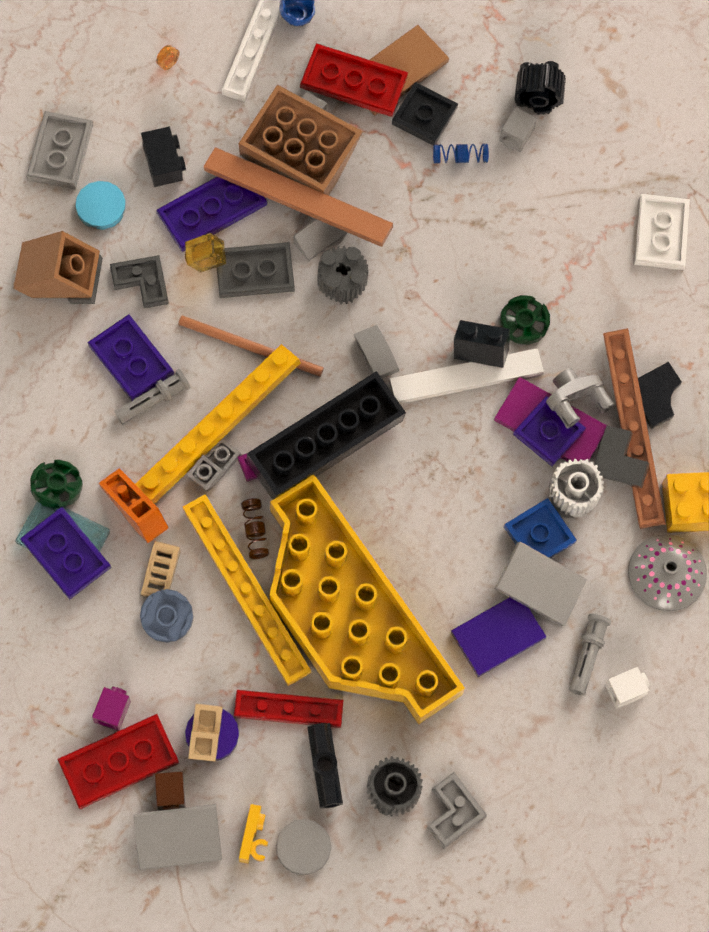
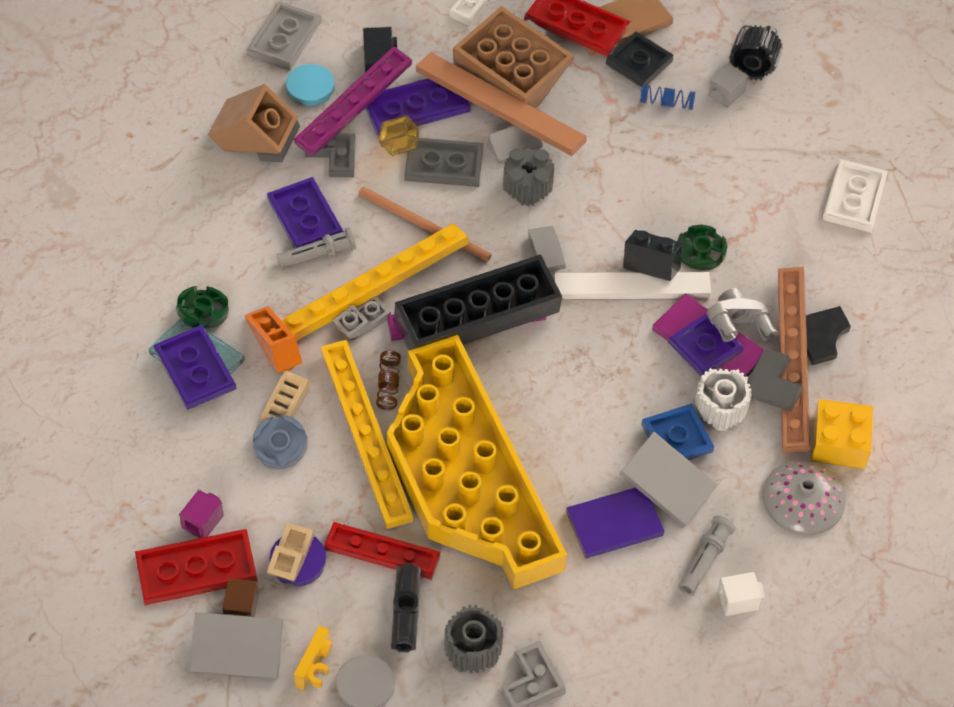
camera: 15 degrees right, 15 degrees down
(151, 222) = (352, 101): none -> magenta tile

